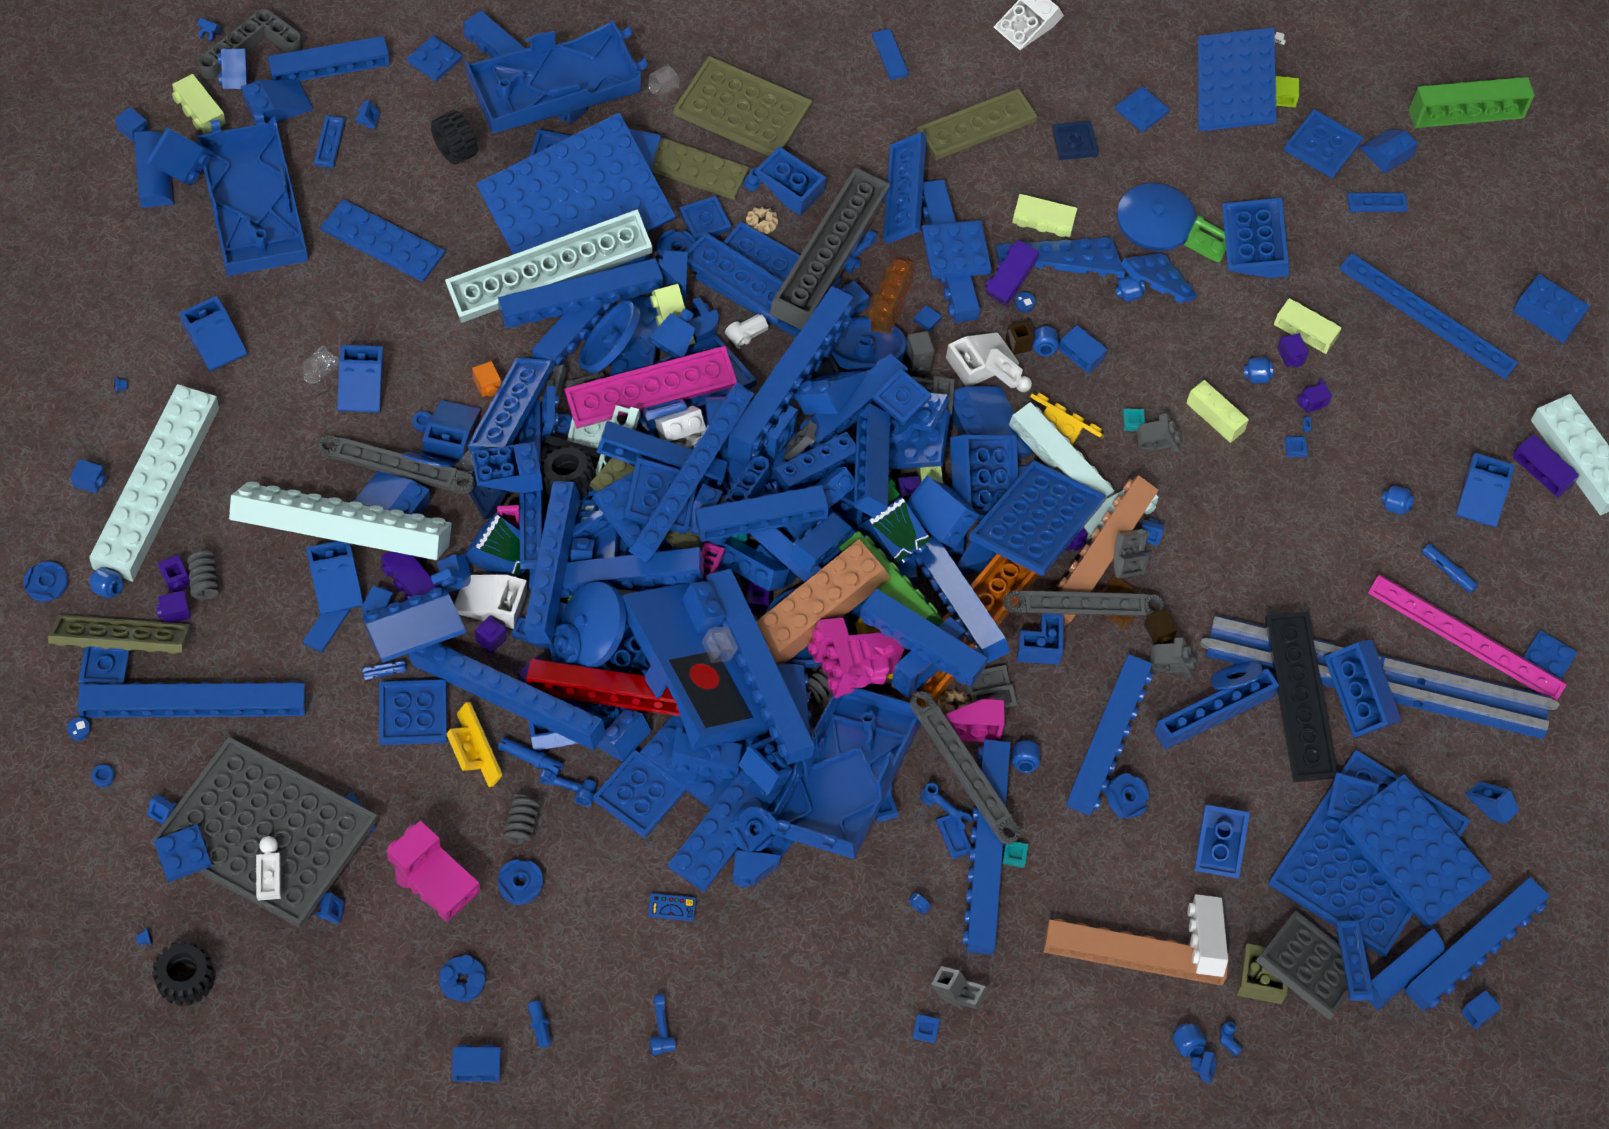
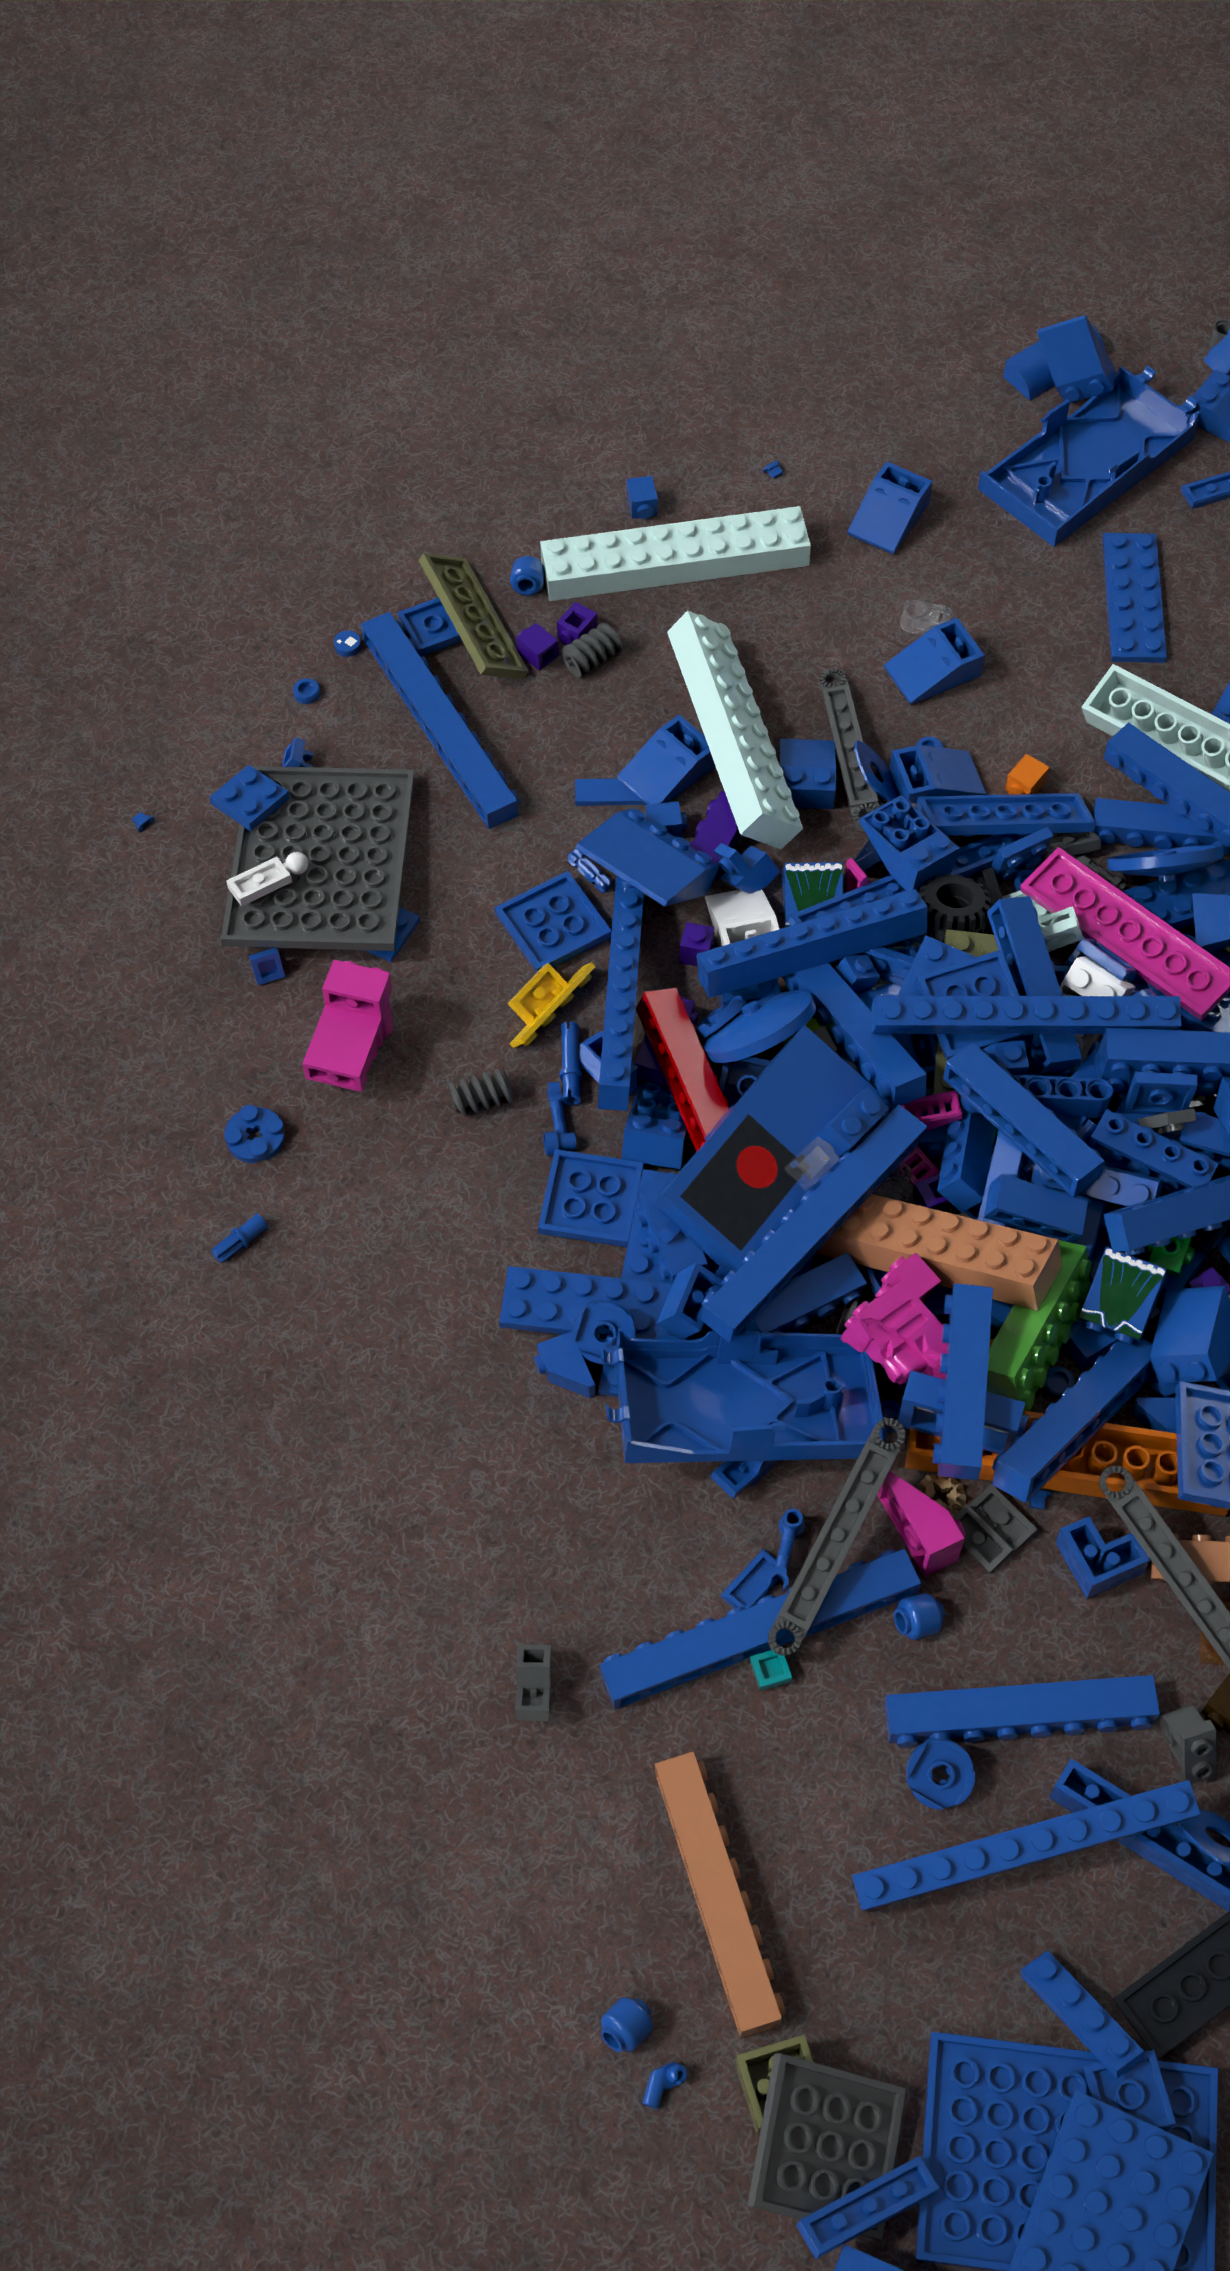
camera: 70 degrees right, 0 degrees up
(46, 581) = (504, 536): blue tile -> none
(130, 122) = (1095, 308): blue brick -> none
(189, 989) = (119, 887): black tyre -> none
(197, 103) = (1168, 350): yellowish green brick -> none
(476, 1063) = (154, 1197): blue brick -> none
(523, 870) = (400, 1117): blue plate -> none
(663, 1042) = (285, 1378): blue brick -> none
(672, 907) = (465, 1305): blue tile -> none
(919, 903) = (629, 1582): blue tile -> none
(926, 1028) = (462, 1672): blue plate -> none
(1197, 773) = (1026, 1845): none -> blue brick
(1205, 1067) = (600, 2066): blue tile -> none
(1208, 935) = (787, 1974): white brick -> none
(1221, 841) = (955, 1935): blue slope -> none
(1297, 798) = (1082, 2014): none -> blue plate

